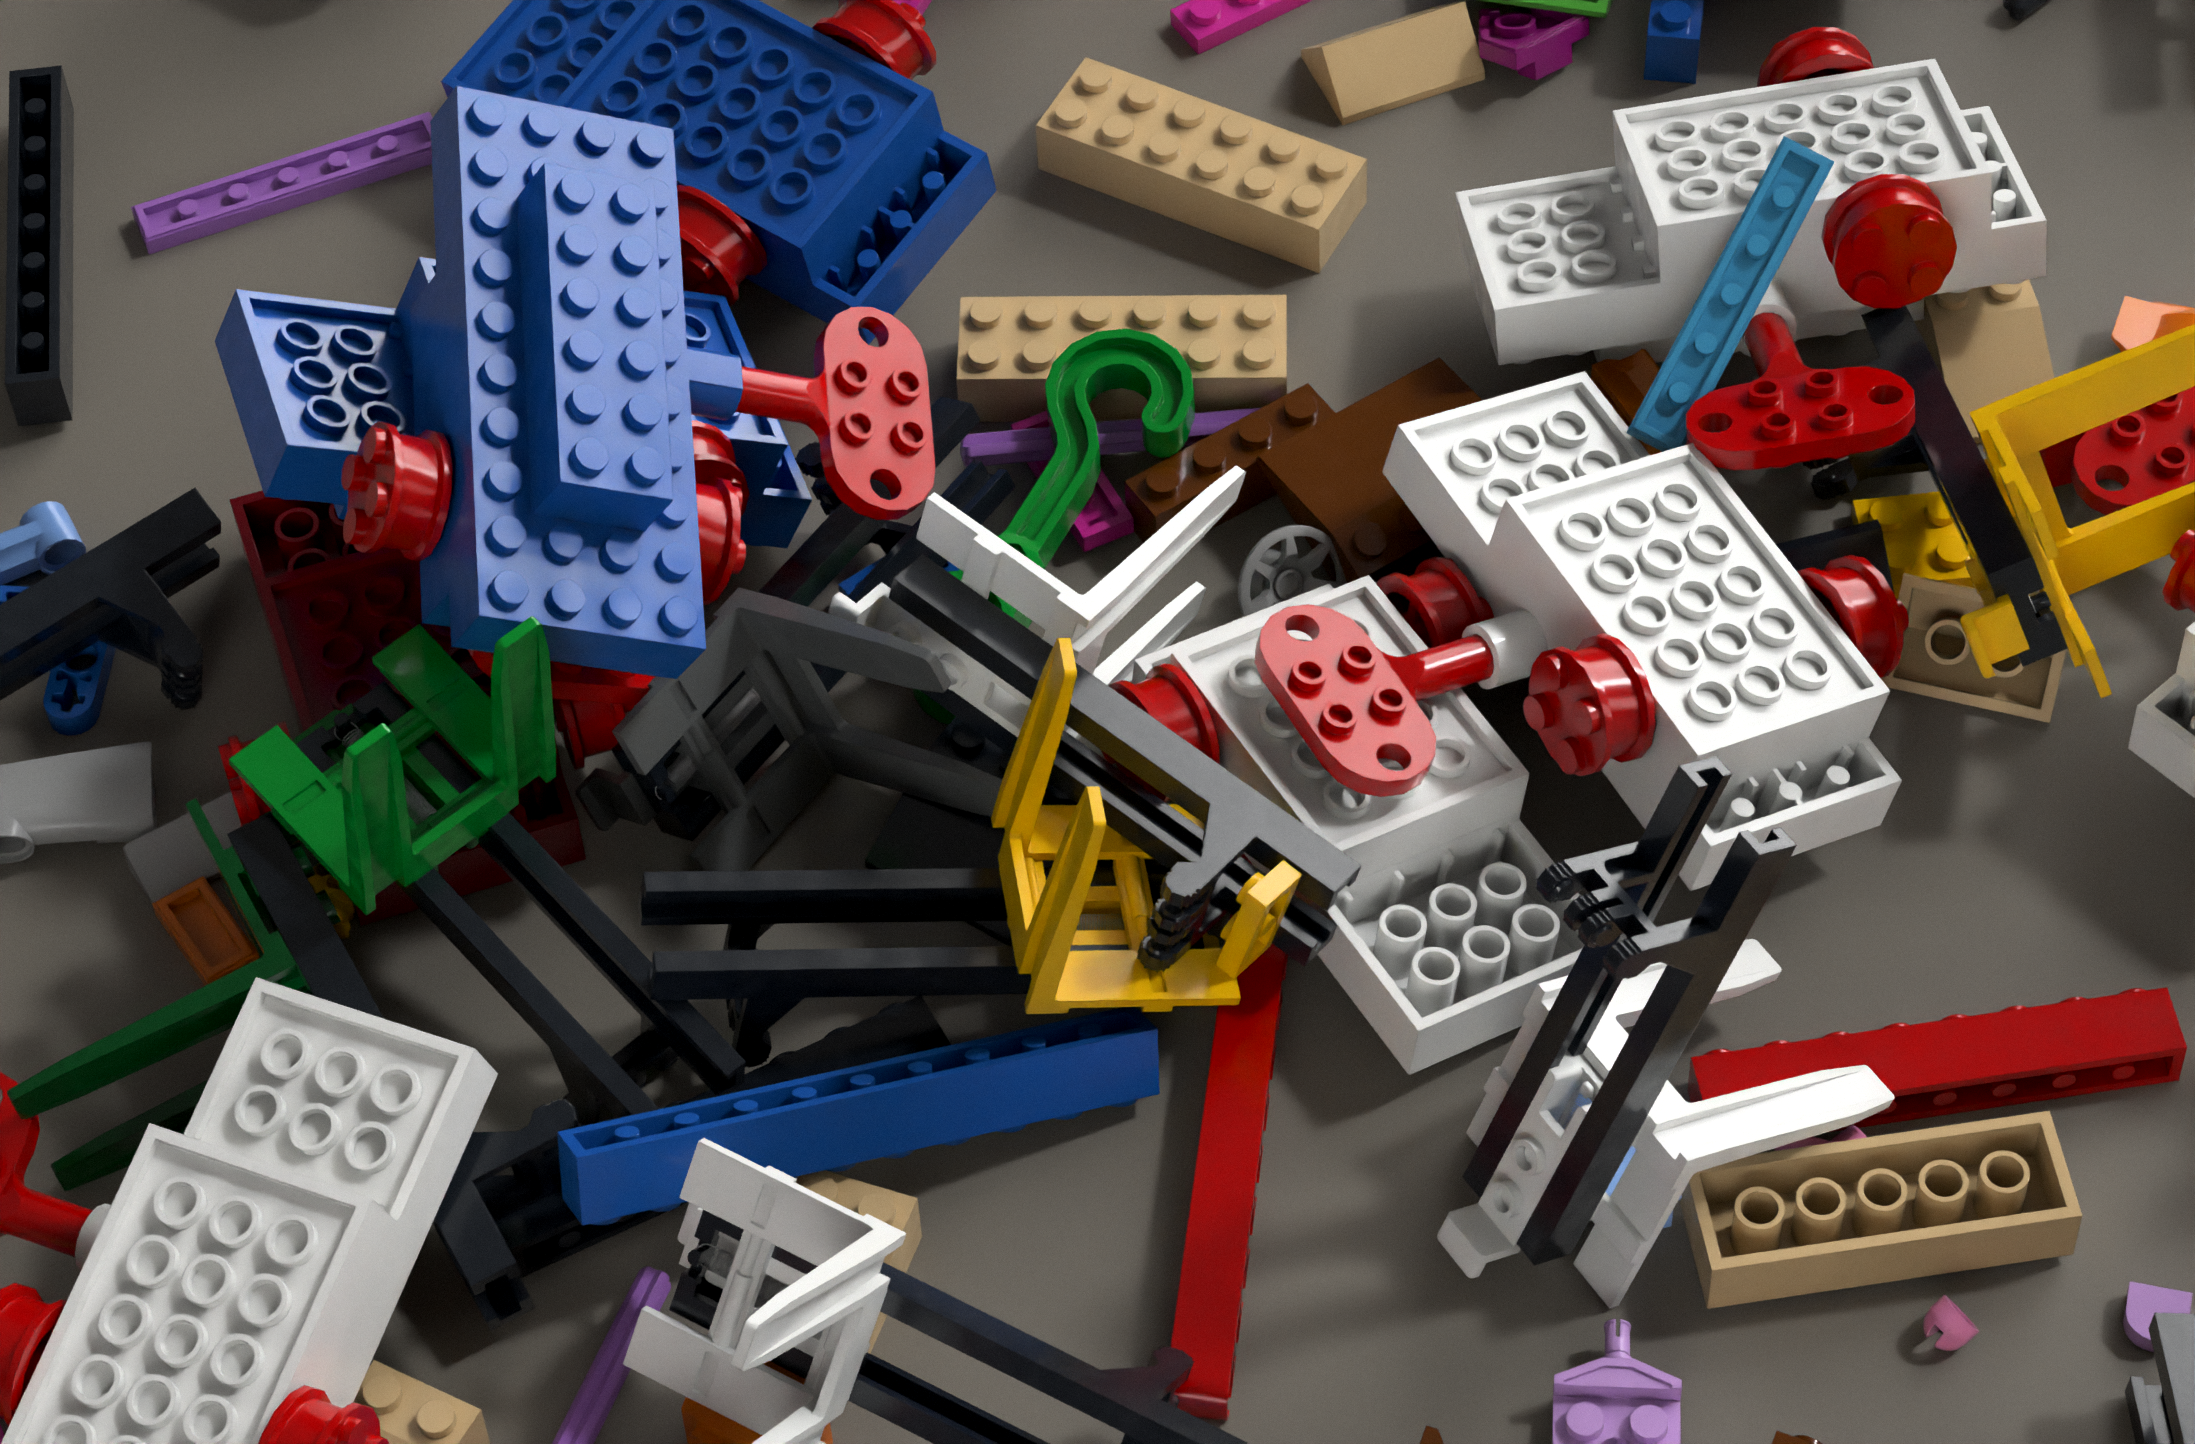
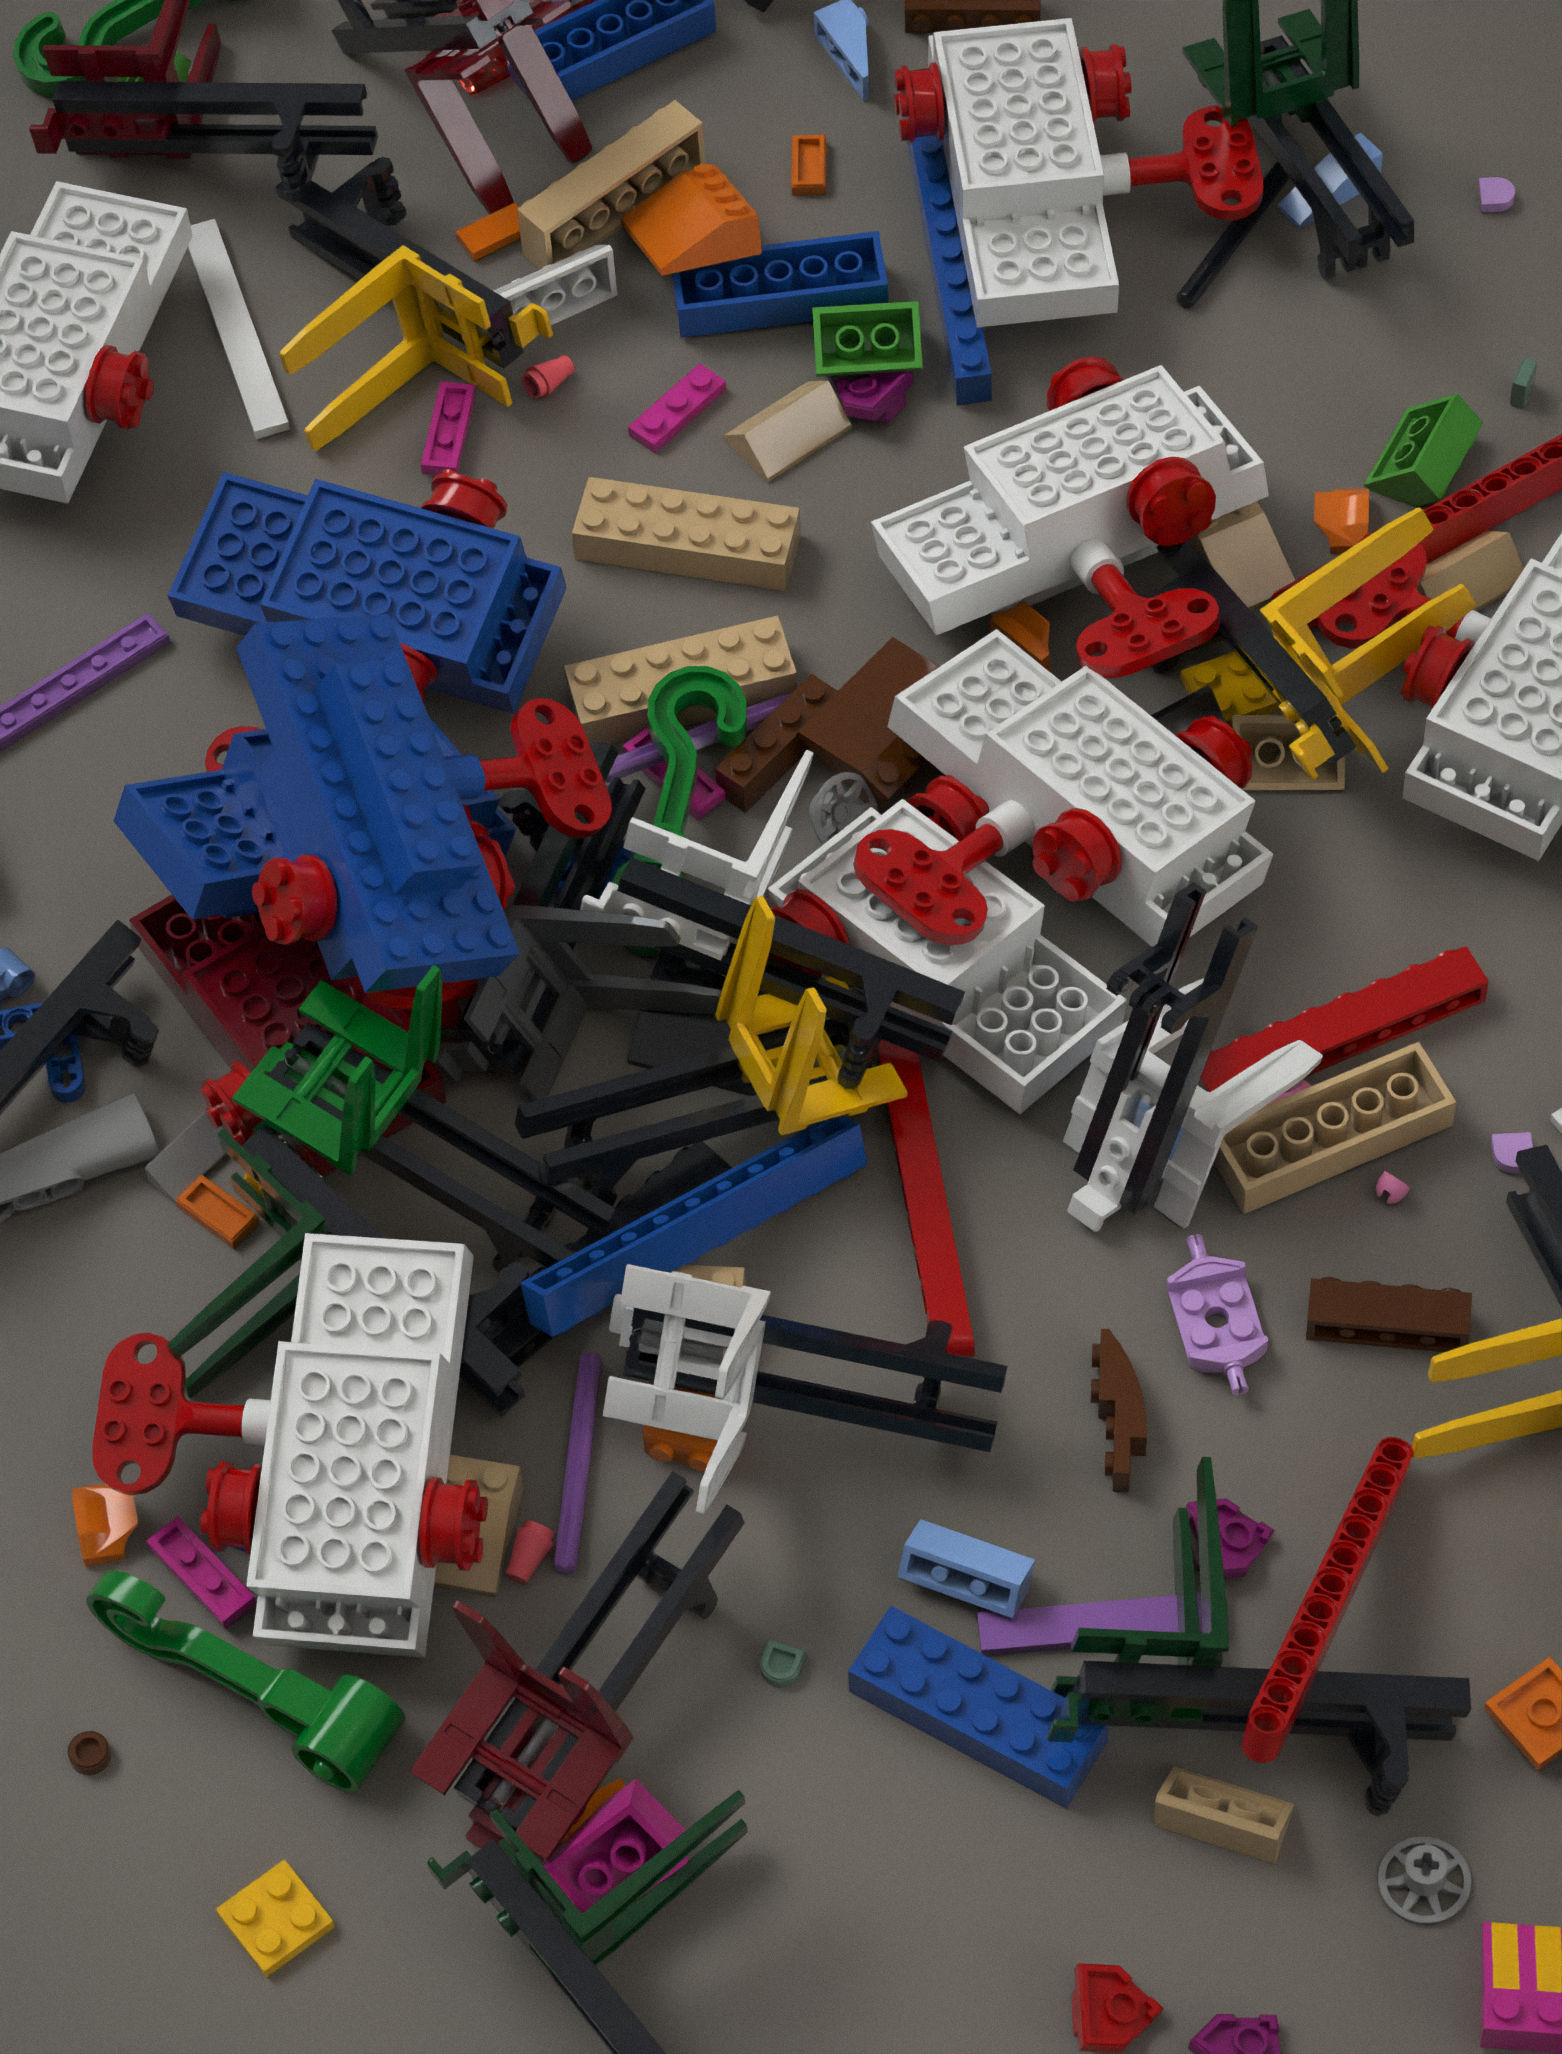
camera: 15 degrees left, 5 degrees up
(1258, 919) = (903, 1048): yellow plate -> none
(1731, 293) = (1081, 560): dark azure tile -> none

